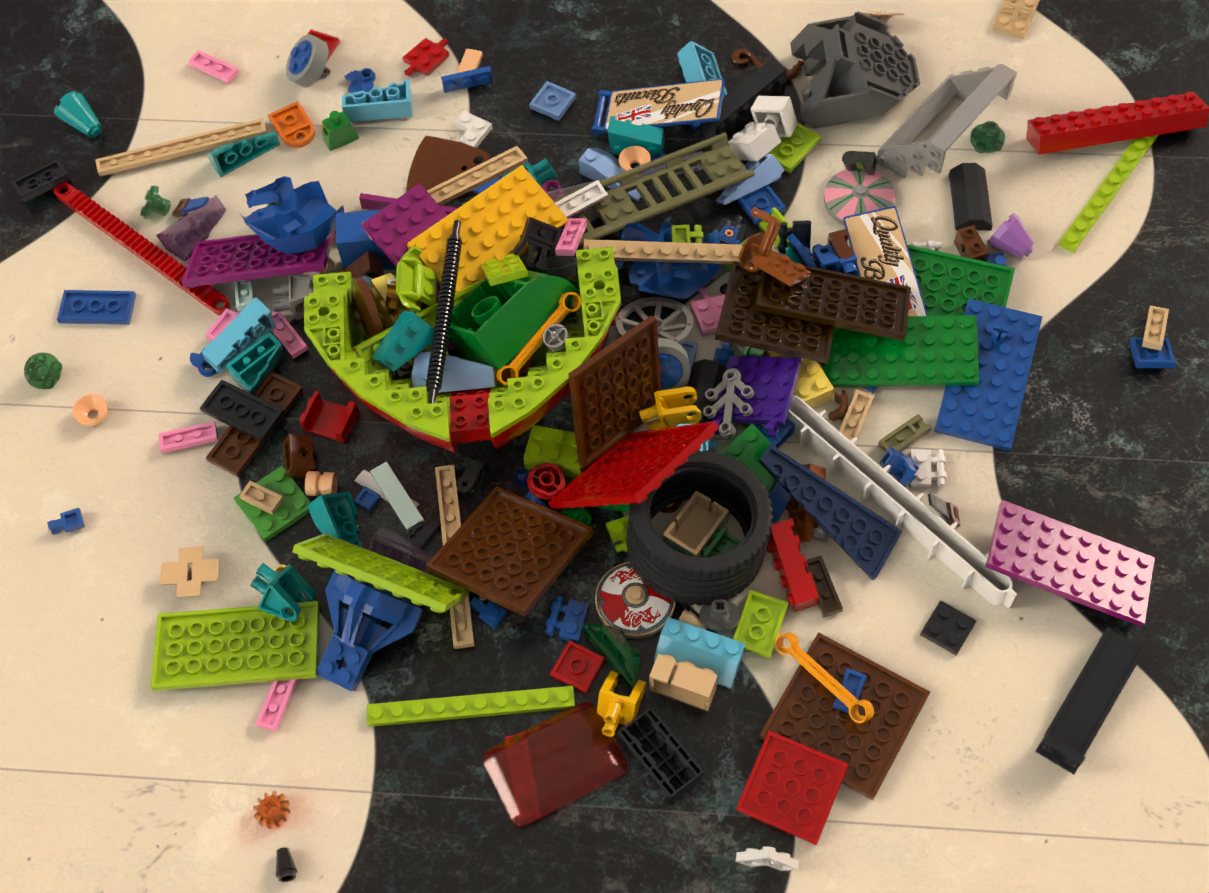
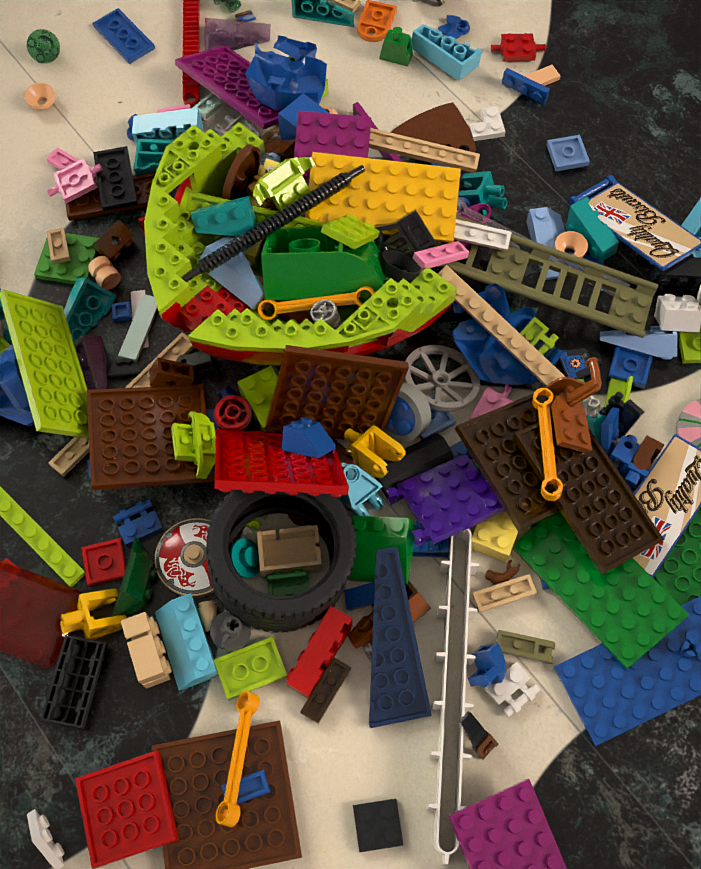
camera: 45 degrees right, 5 degrees up
(212, 440) = (75, 180): none -> bright pink plate
(468, 499) = (170, 373): none -> reddish brown brick
(552, 518) = (195, 443): none -> lime plate
(628, 438) = (306, 438): none -> blue slope
(728, 400) = (419, 485): light grey plant -> none
(782, 292) = (547, 444): none -> light orange piece

